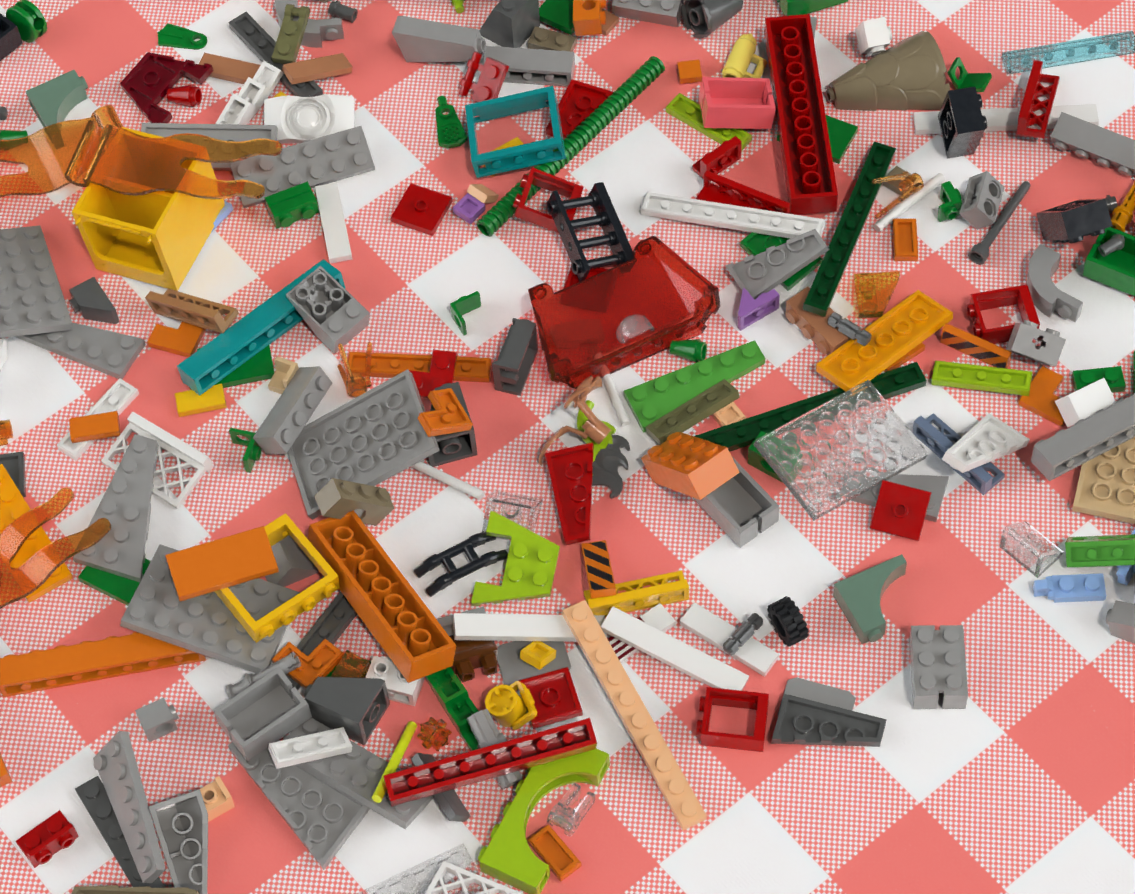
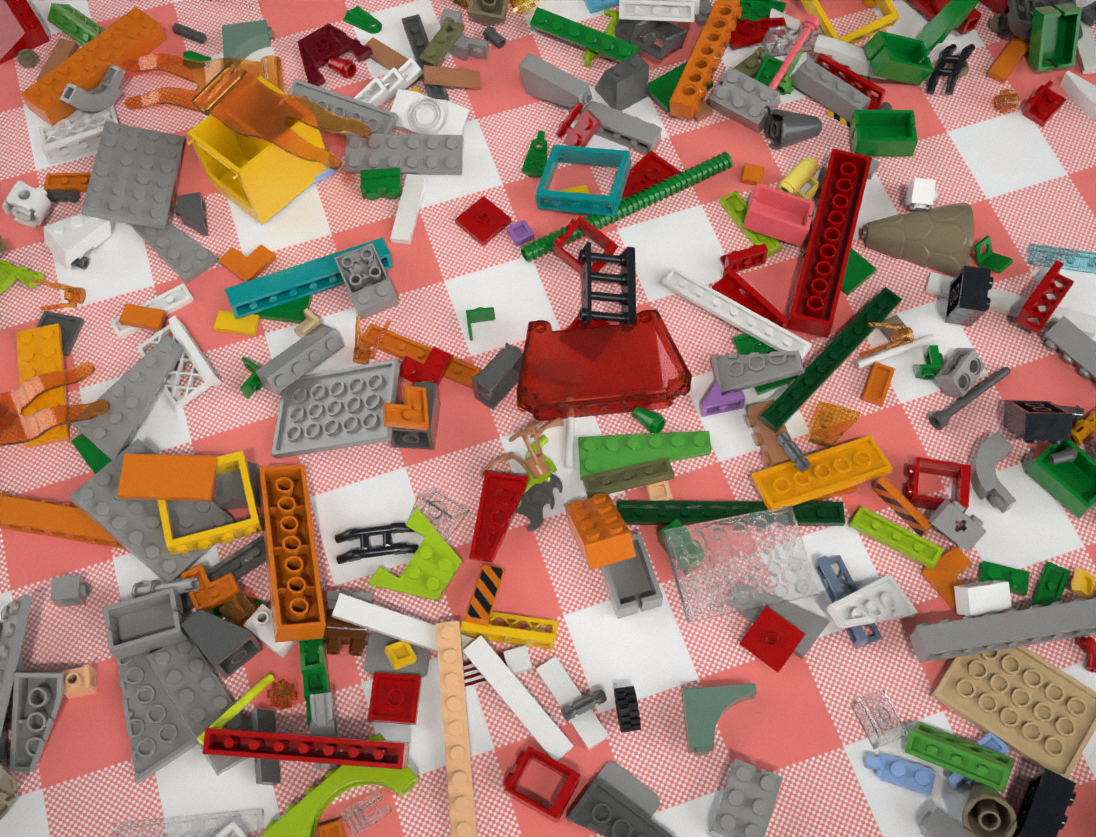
camera: 20 degrees right, 5 degrees up
(192, 310) = (261, 249): medium nougat fence -> none
(310, 747) = (169, 669): white tile -> none
(342, 496) = (293, 453): dark tan arch -> none
(449, 480) = (403, 467): white bar -> none
(482, 193) = (536, 223): light nougat tile -> none
(509, 707) = (354, 694): yellow piece -> none
(551, 40) = (649, 112): dark tan plate -> none
(633, 326) = (606, 384): clear hair -> none

